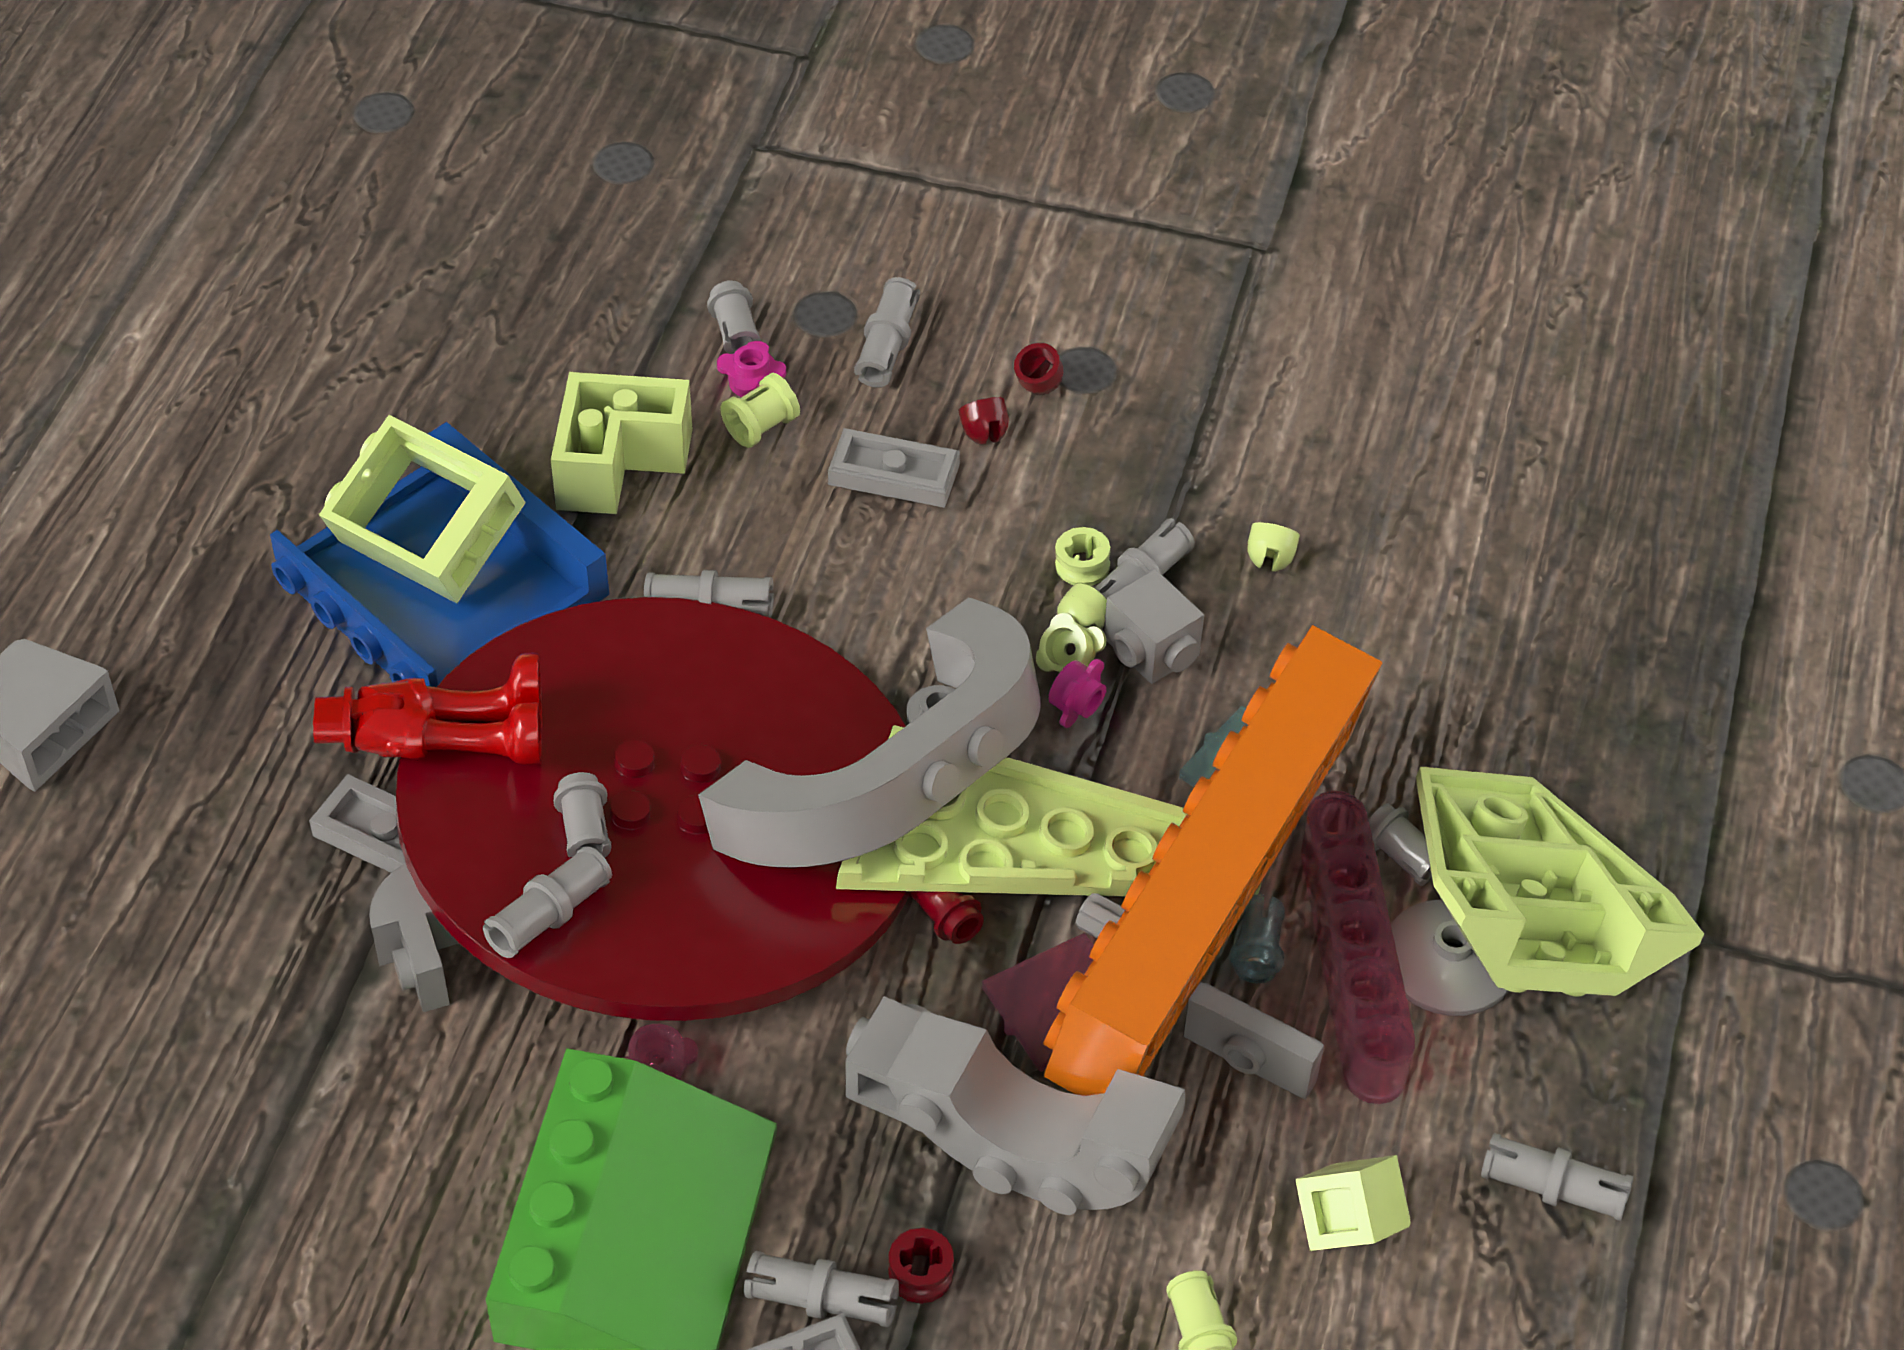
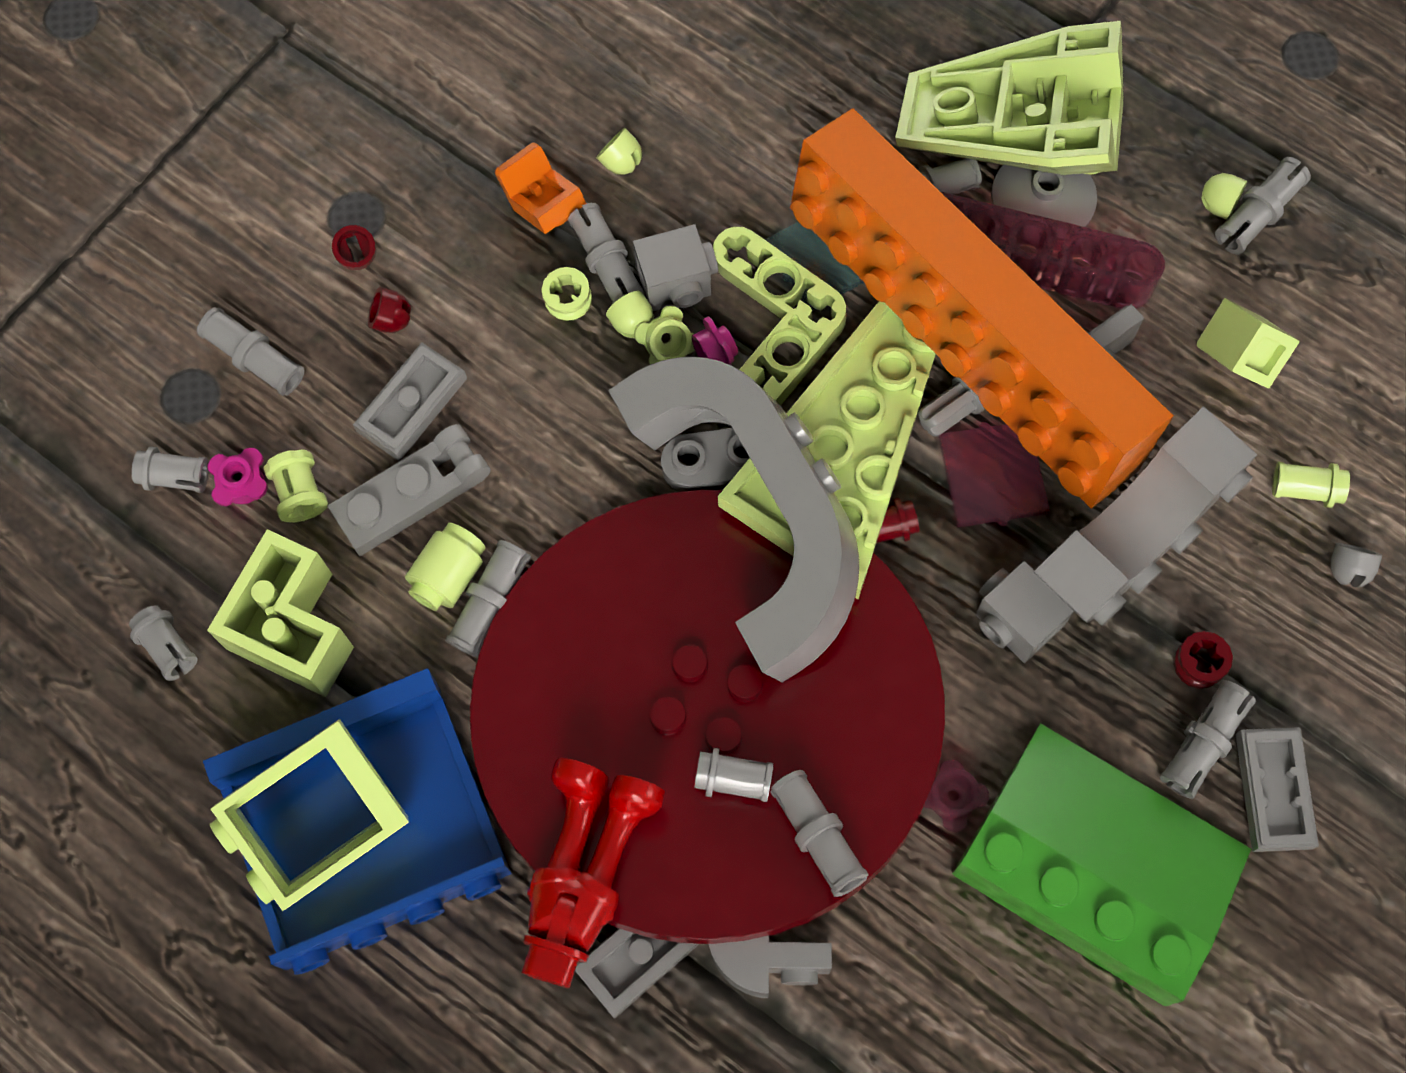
camera: 65 degrees left, 20 degrees up
(565, 357) = (155, 632): none -> light grey pin
(725, 545) = (445, 567): none -> yellowish green brick
(799, 501) = (409, 490): none -> light grey plate
(1145, 756) = (795, 324): none -> yellowish green beam
(1187, 486) = (538, 190): none -> orange bracket
(1549, 1127) = (1222, 194): none -> yellowish green hinge

